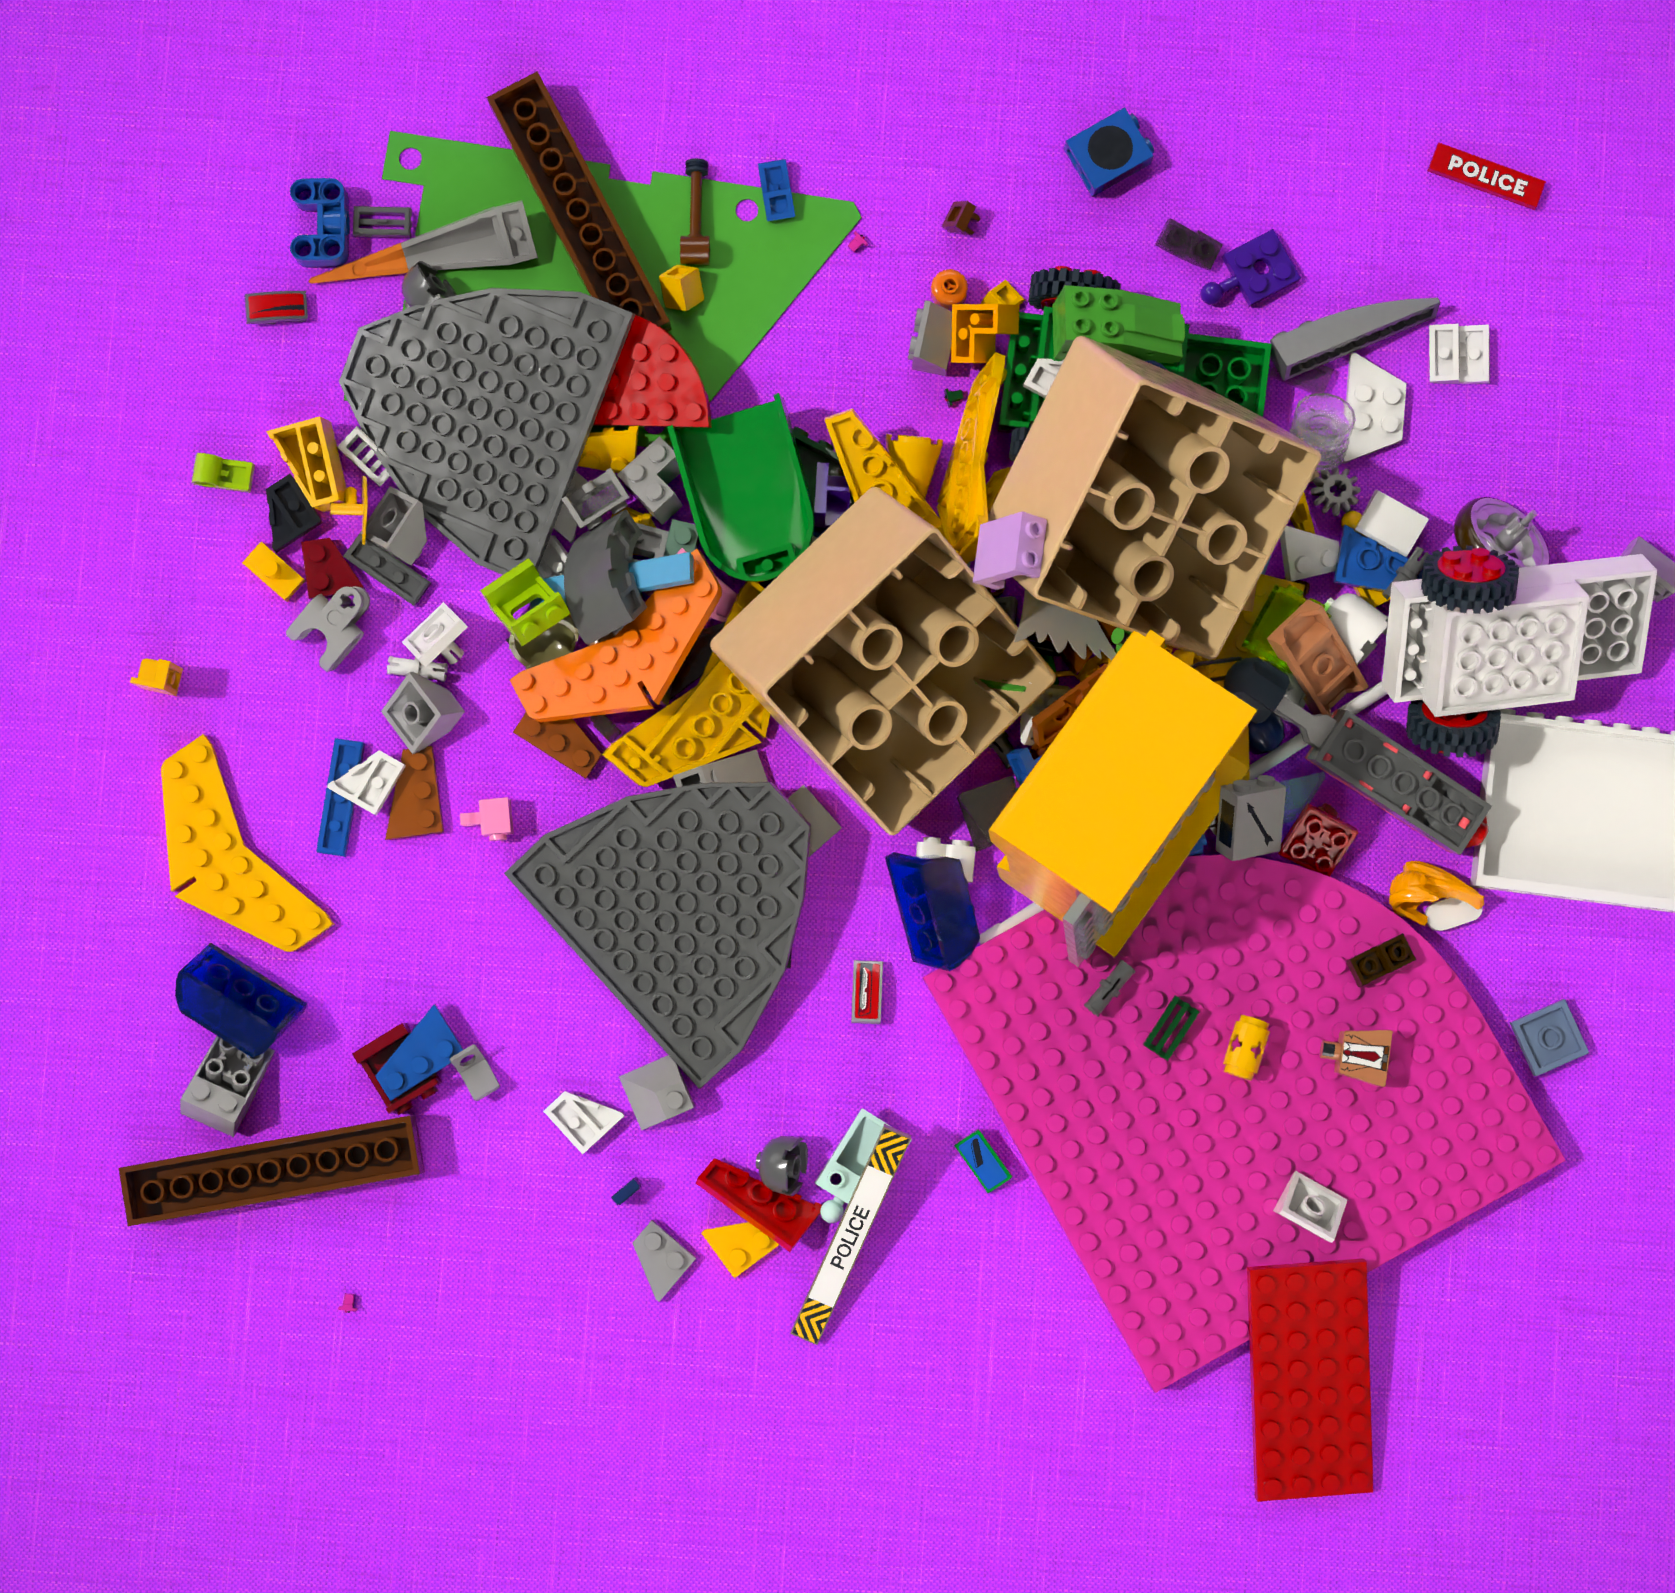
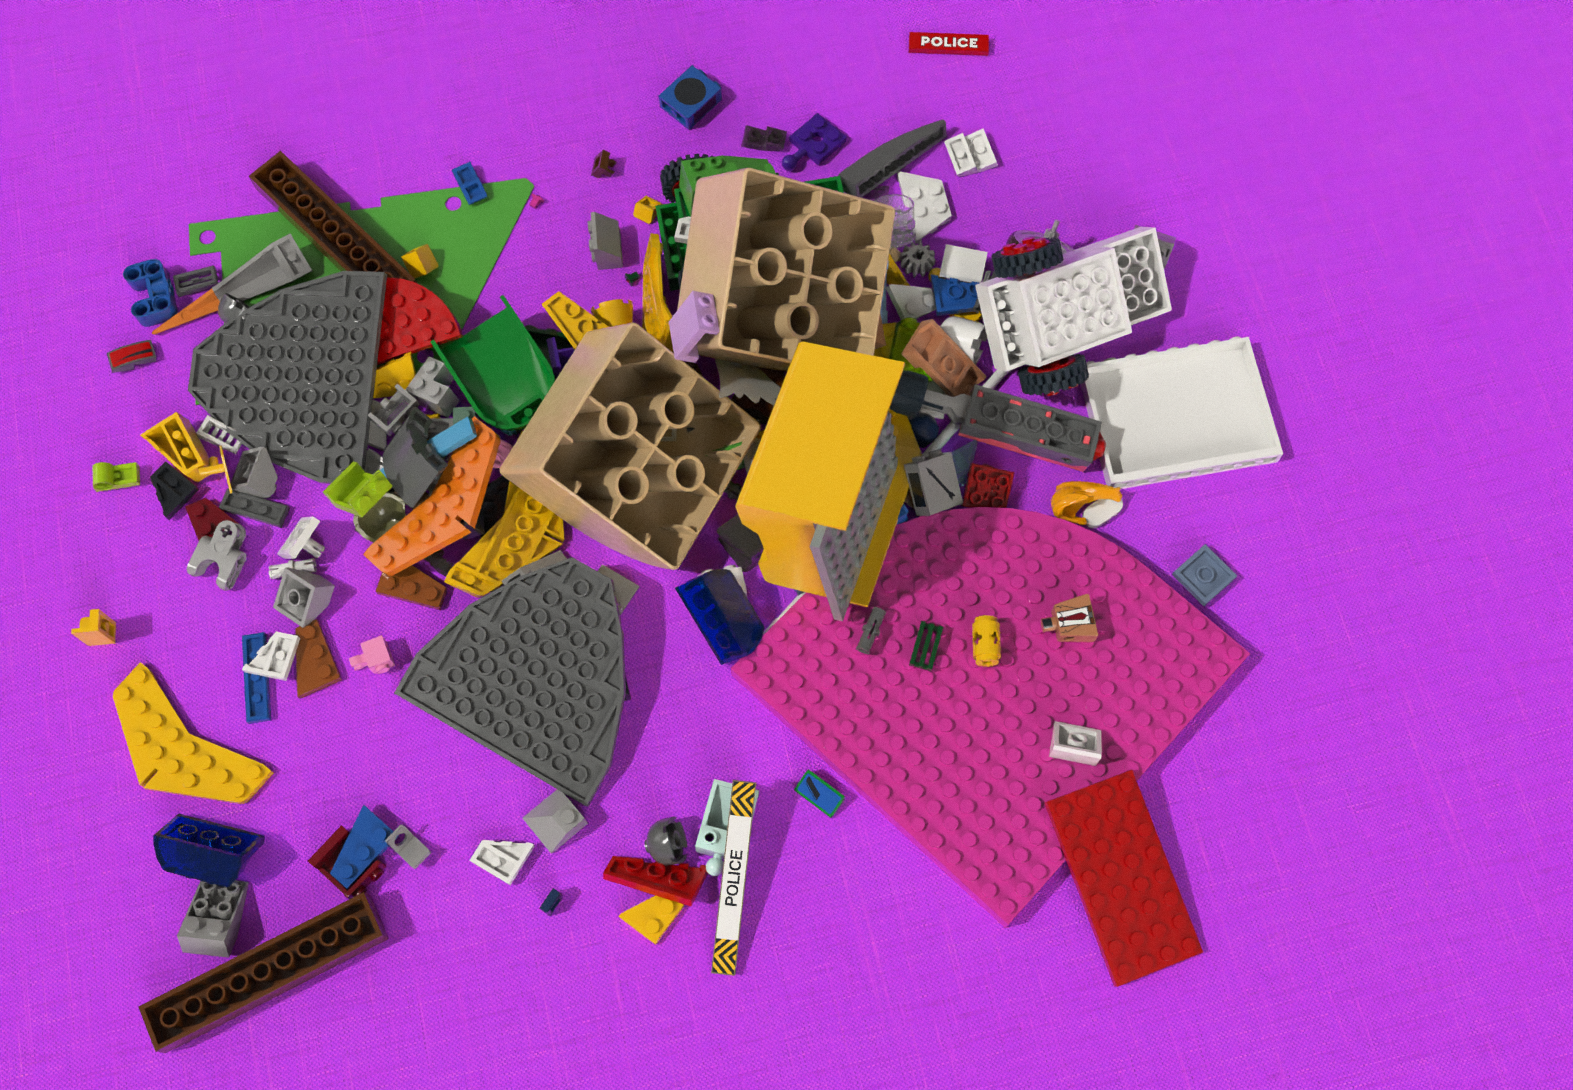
camera: 15 degrees left, 15 degrees down
(273, 571) = (169, 533): yellow tile -> none
(348, 1303) = (352, 1062): dark pink piece -> none
(661, 1258) = (593, 947): light grey wing -> none
(695, 247) = (422, 232): reddish brown piece -> none
(867, 992) = (693, 696): slope -> none
(944, 296) = (608, 206): orange head -> none
(976, 330) = (633, 223): light orange brick -> none
(1380, 960) = (1062, 551): dark brown slope -> none

